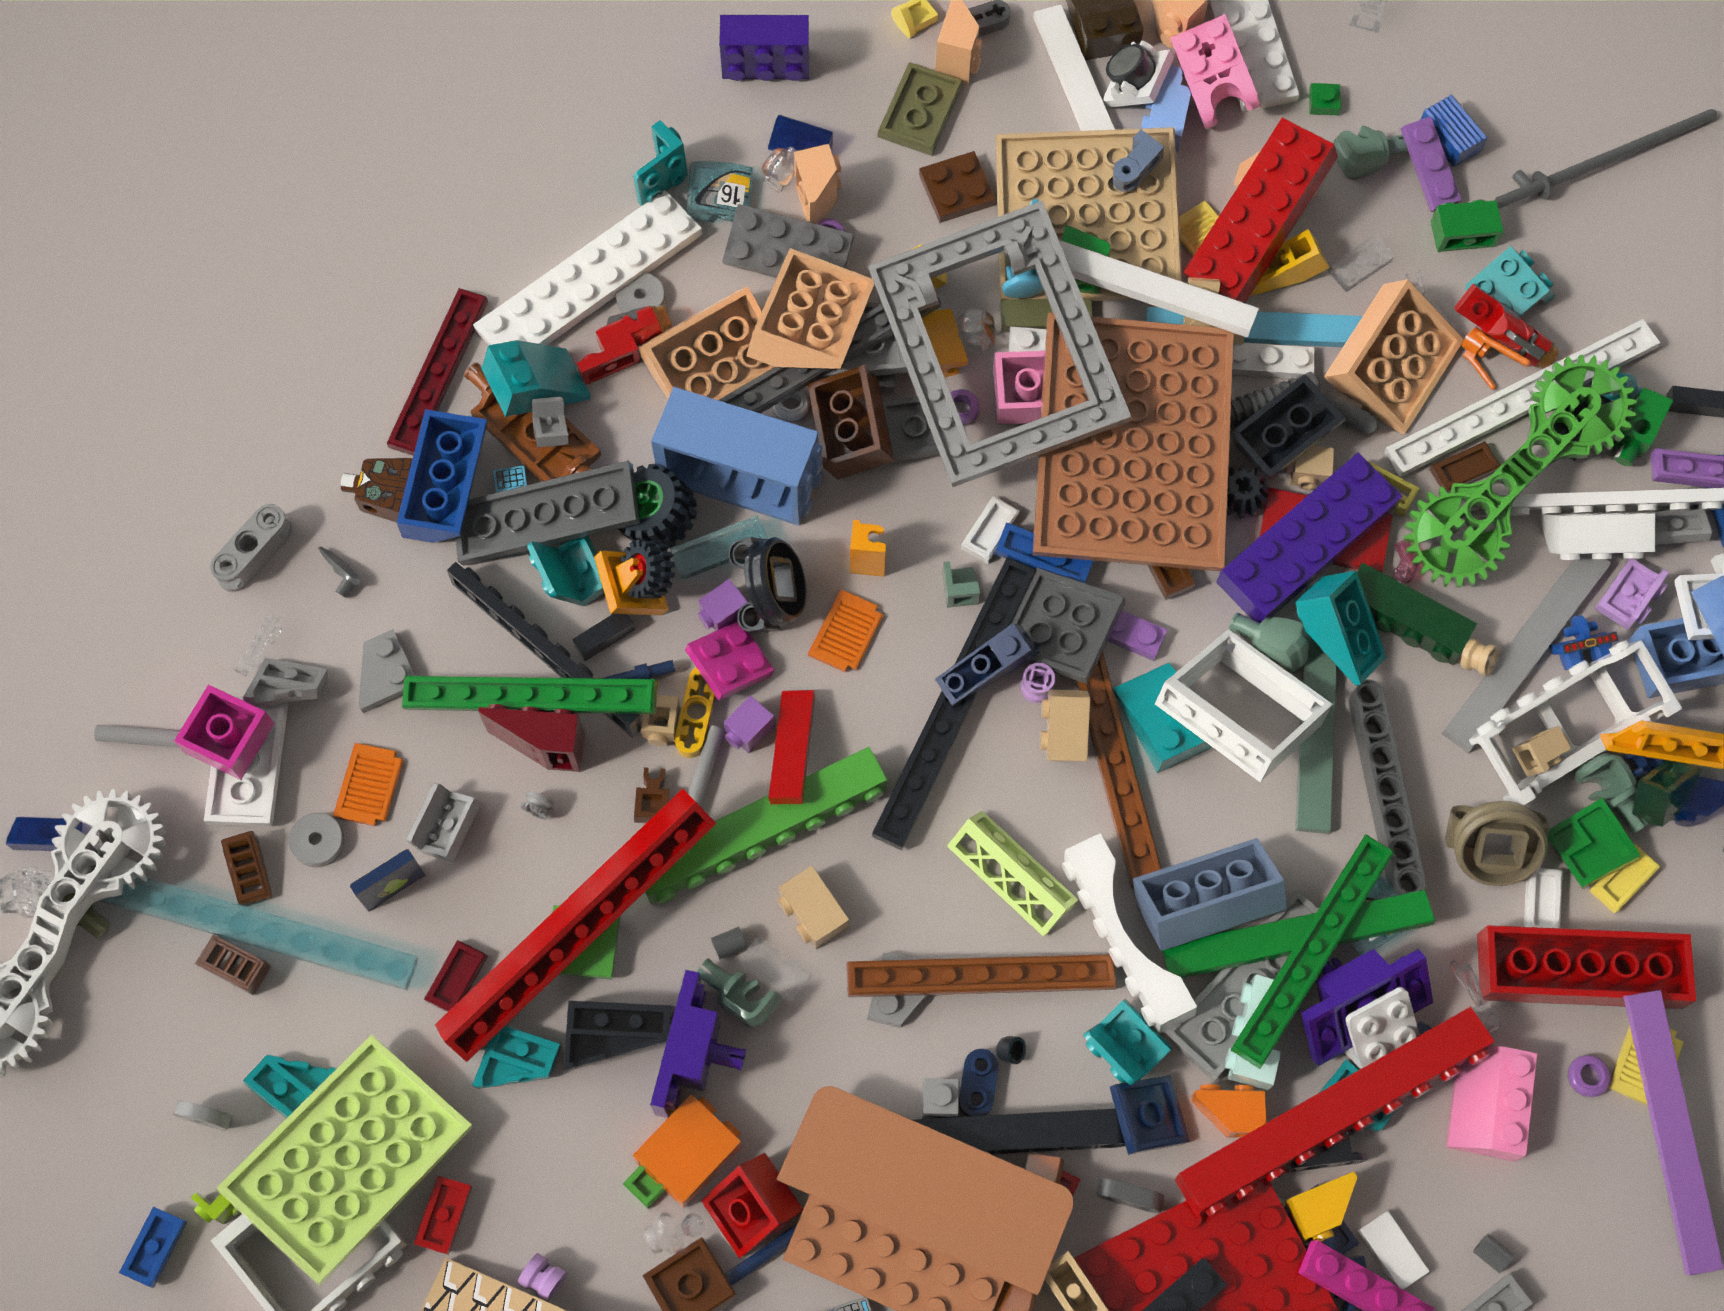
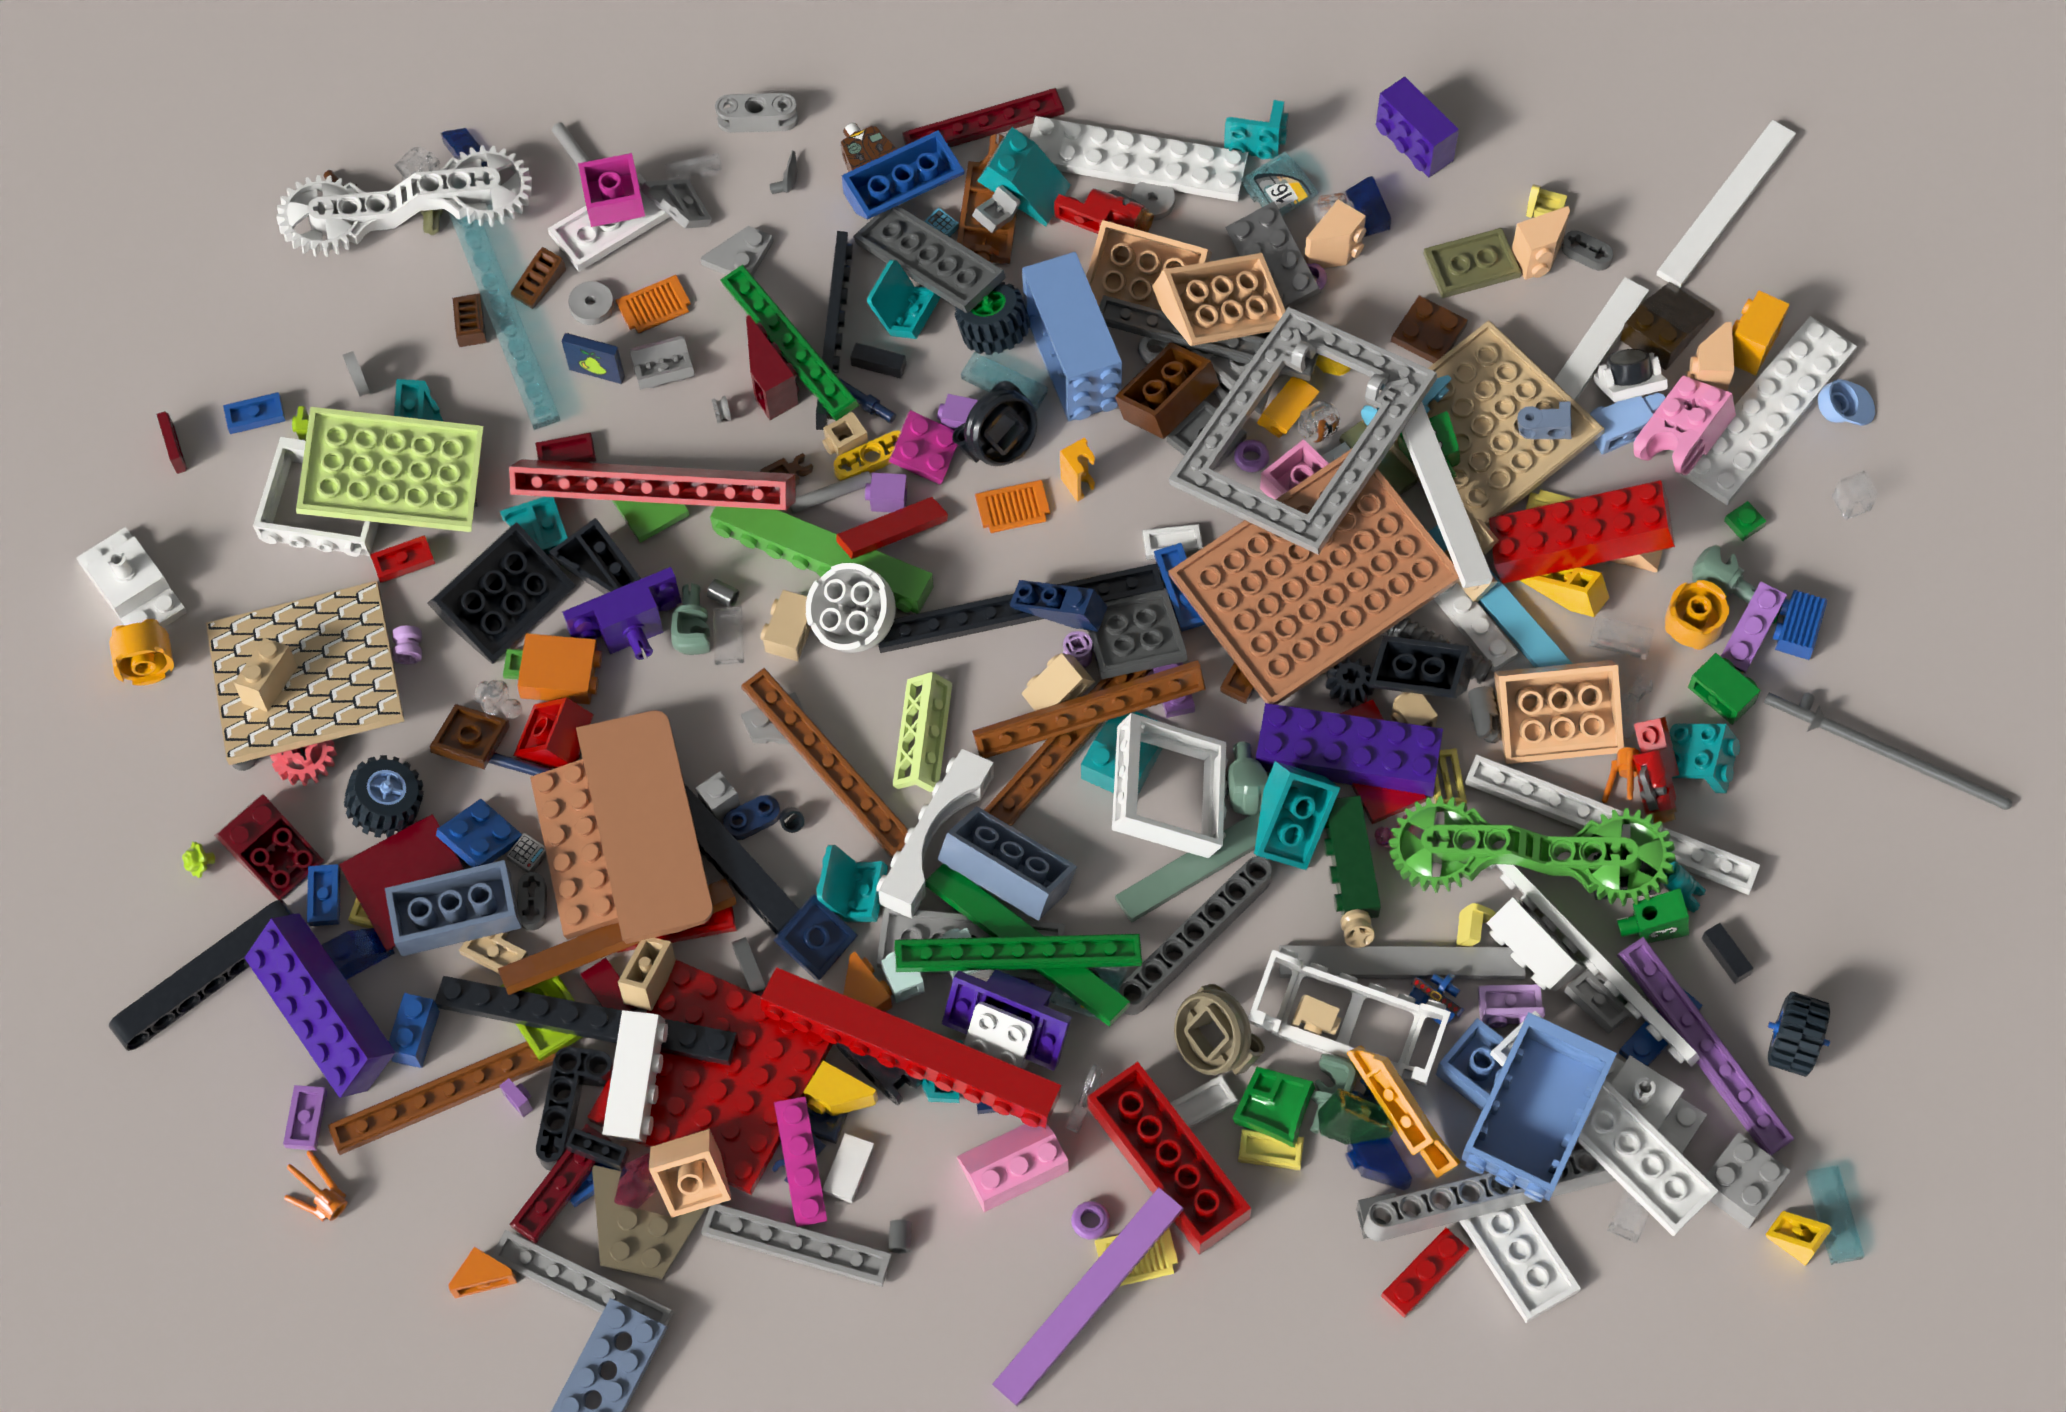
camera: 55 degrees right, 5 degrees down
(560, 1147) = (501, 593): none -> black slope
(636, 578) = (928, 345): plate -> none
(856, 863) = (837, 605): none -> white cylinder
(960, 586) = (1109, 550): sand green panel -> none
(1110, 718) = (1089, 709): none -> dark orange tile
(1388, 193) = (1696, 614): none -> light orange brick
(1465, 466) = (1505, 814): reddish brown tile -> none
(1538, 569) = (1471, 924): none -> light yellow tile

